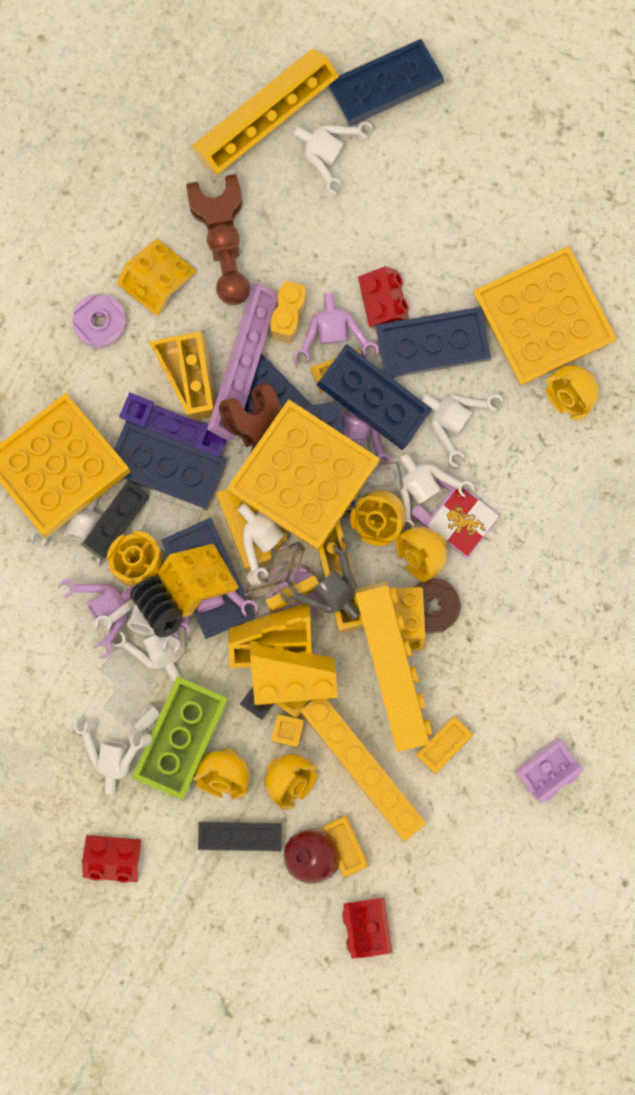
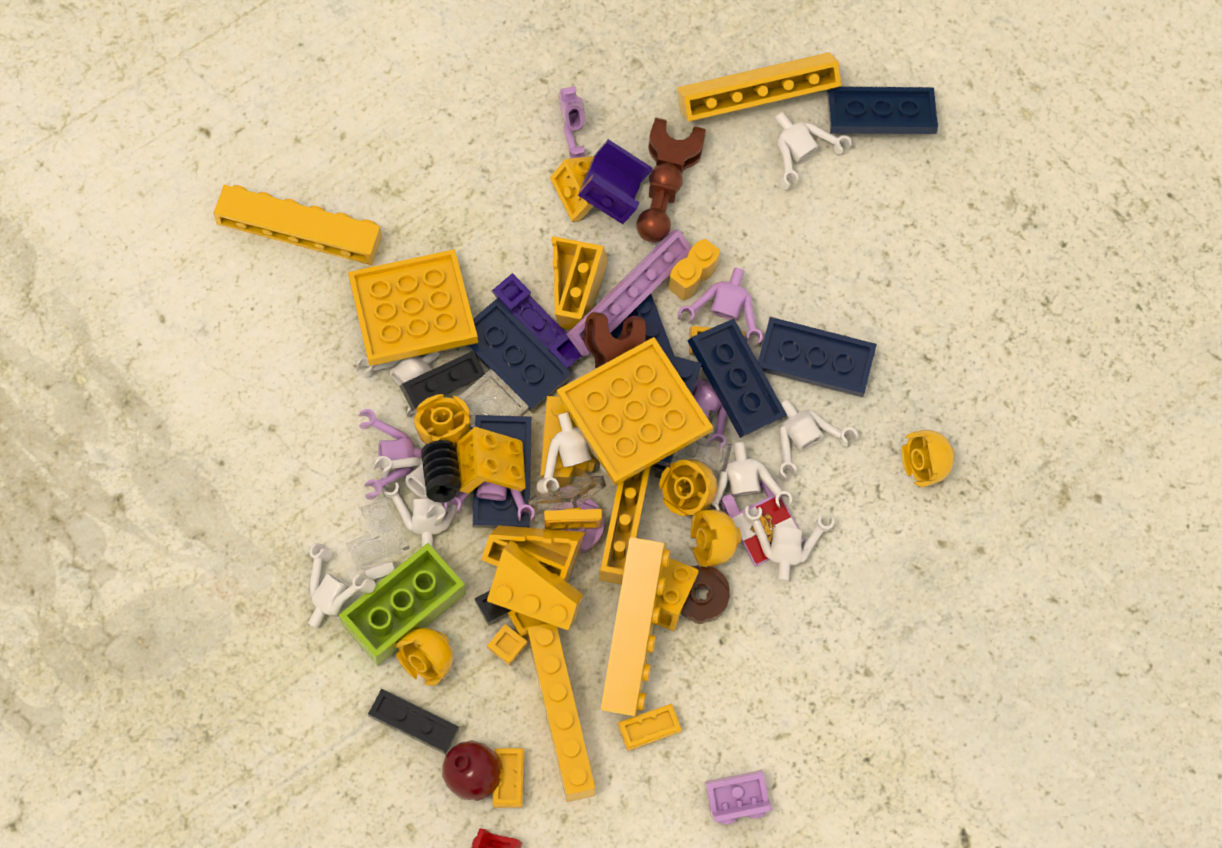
camera: 20 degrees right, 10 degrees down
(98, 336) = (524, 189): lavender plate -> none
(111, 858) = (282, 685): red bracket -> none
(113, 219) = (573, 114): none -> lavender piece
(178, 264) = (614, 181): none -> dark purple panel
(288, 779) = (486, 689): yellow cylinder -> none
(333, 589) = (611, 528): dark grey piece -> none
(383, 296) = (790, 295): red bracket -> none
(486, 526) = (786, 543): none -> white piece
(544, 316) = (933, 379): yellow plate -> none

